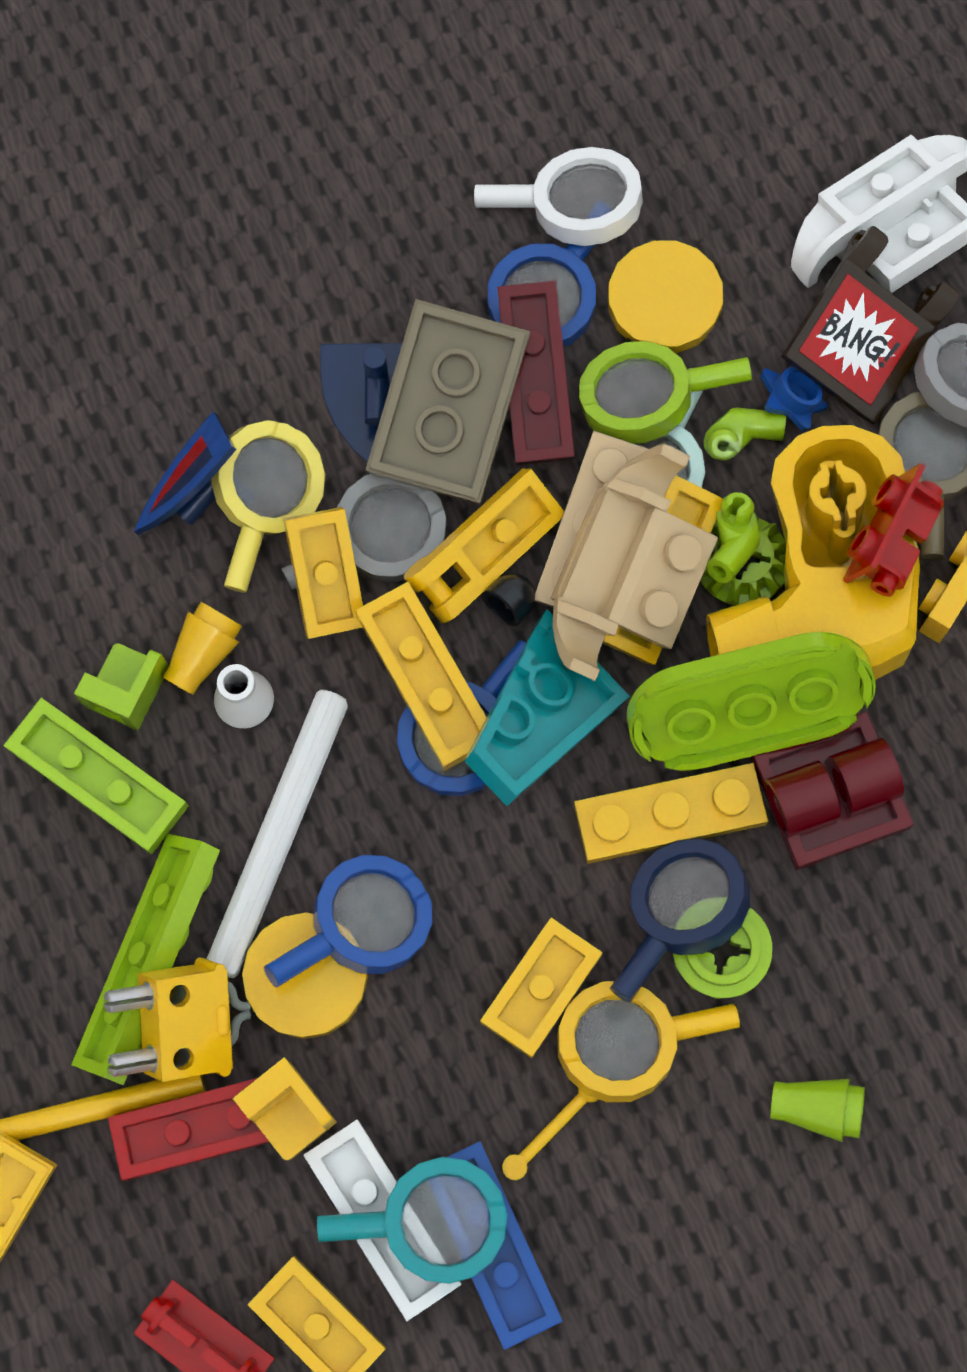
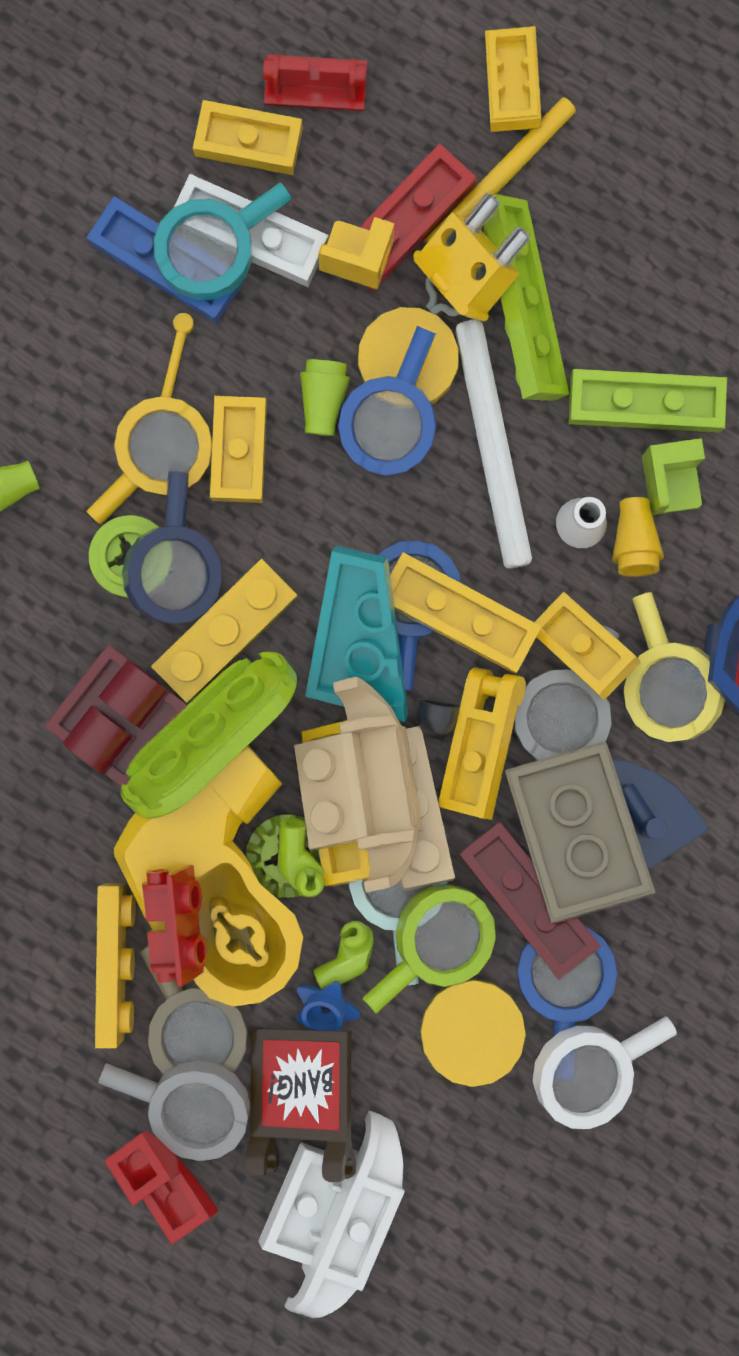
camera: 145 degrees right, 10 degrees up
(416, 990) = (323, 394): none -> lime cone

